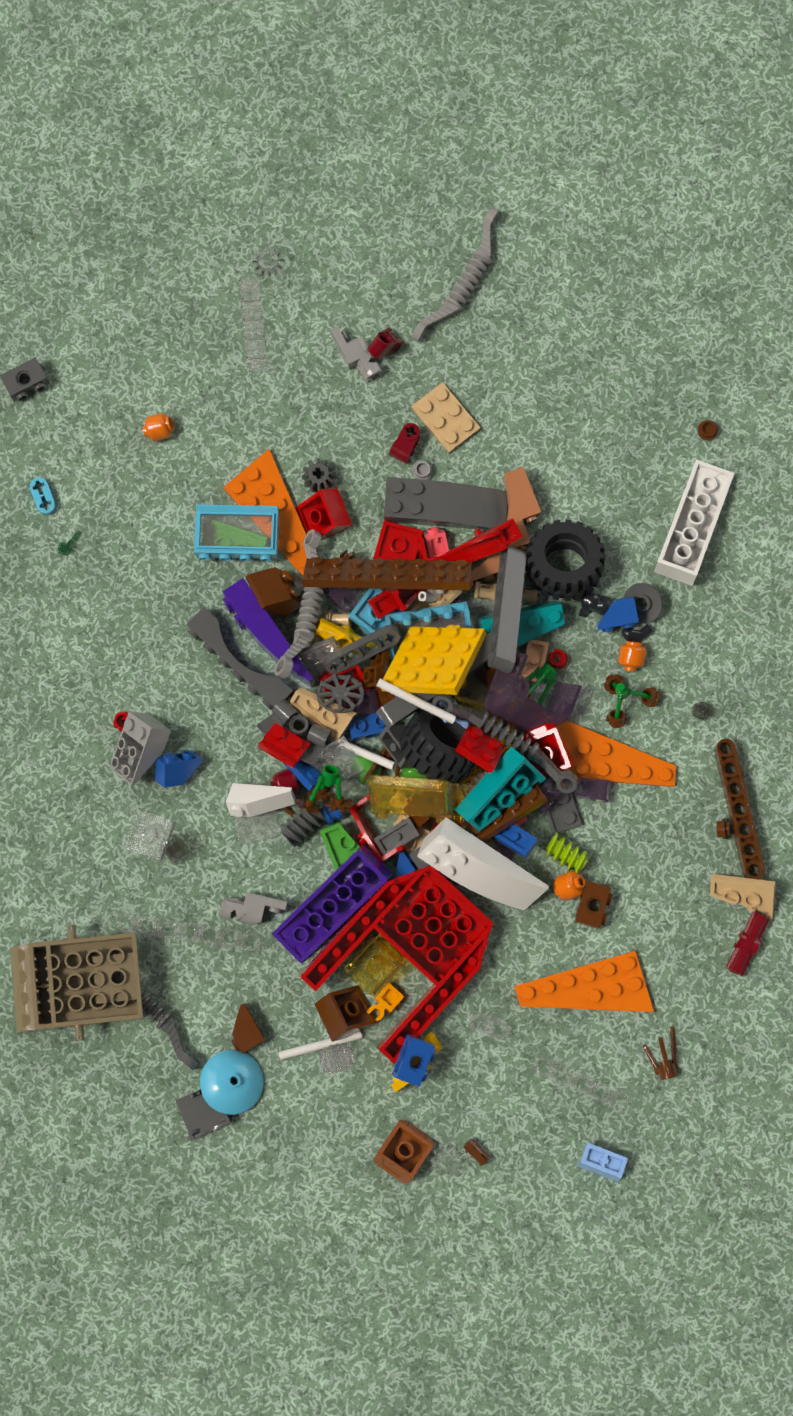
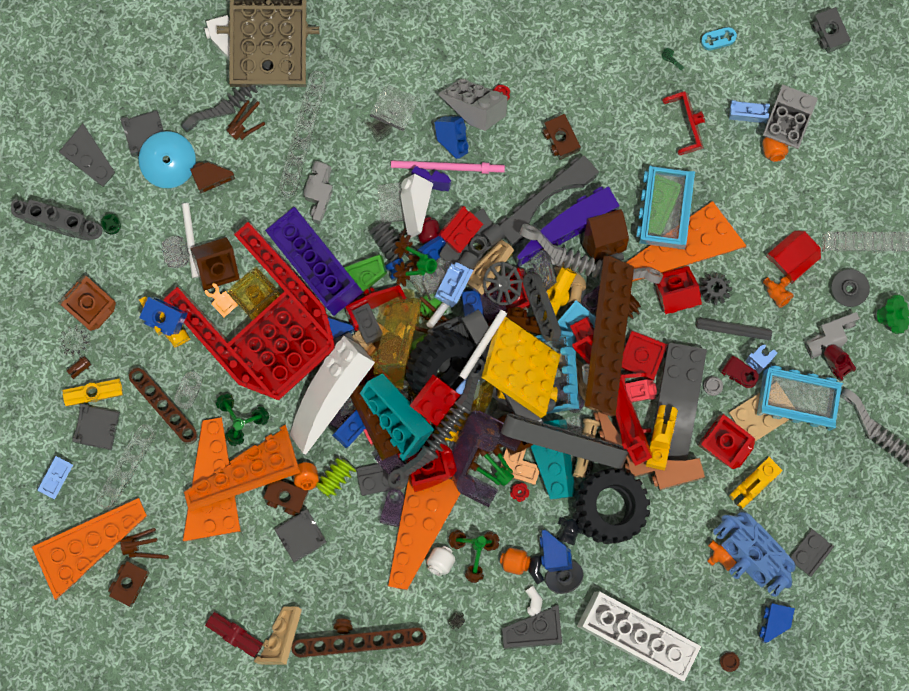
camera: 95 degrees right, 0 degrees up
(92, 1034) = (220, 41): none -> white slope
(121, 457) = (749, 112): none -> light blue hinge
(125, 413) = (790, 116): none -> light grey slope
(136, 513) = (694, 119): none -> red piece
(173, 641) = (561, 126): none -> reddish brown brick
(189, 1007) = (236, 128): none -> reddish brown plant
(209, 730) = (485, 167): none -> bright pink bar
(227, 776) = (440, 180): none -> dark purple slope
(235, 1174) = (87, 156): none -> dark grey wing
(273, 398) = (795, 255): none -> red slope
(304, 330) = (854, 279): none -> dark grey dish
(309, 1139) = (107, 222): none -> dark green wheel
(314, 413) = (777, 291): none -> orange piece
(314, 1198) = (56, 219): none -> dark grey piece
(328, 292) = (895, 314): none -> green plant
(346, 746) = (453, 284): none -> light blue hinge
(359, 454) = (735, 329): none -> dark grey axle
(393, 419) = (758, 360): none -> light blue hinge
(427, 381) = (799, 397): none -> window
(481, 450) = (727, 442): none -> red slope
(487, 512) = (662, 439): none -> yellow plate
(507, 1146) = (104, 391): none -> yellow piece
(519, 1046) = (158, 398): none -> reddish brown beam
(520, 418) = (756, 482): none -> yellow plate
(532, 967) = (235, 435): none -> dark green plant
(541, 1123) = (96, 427): none -> dark grey piece
(568, 941) = (251, 469): none -> orange wing
(585, 358) = (811, 552): none -> dark grey plate
(594, 411) = (755, 552): none -> medium blue piece
(599, 444) = (720, 555): none -> orange piece
(632, 885) = (300, 536): none -> dark grey piece
(641, 733) = (440, 561): none -> white head
(662, 385) = (778, 620): none -> blue slope
(671, 630) = (536, 601): none -> white arm
(679, 1127) = (77, 550): none -> orange wing
(702, 629) = (536, 631): none -> dark grey wing
(721, 1065) = (138, 577): none -> reddish brown brick

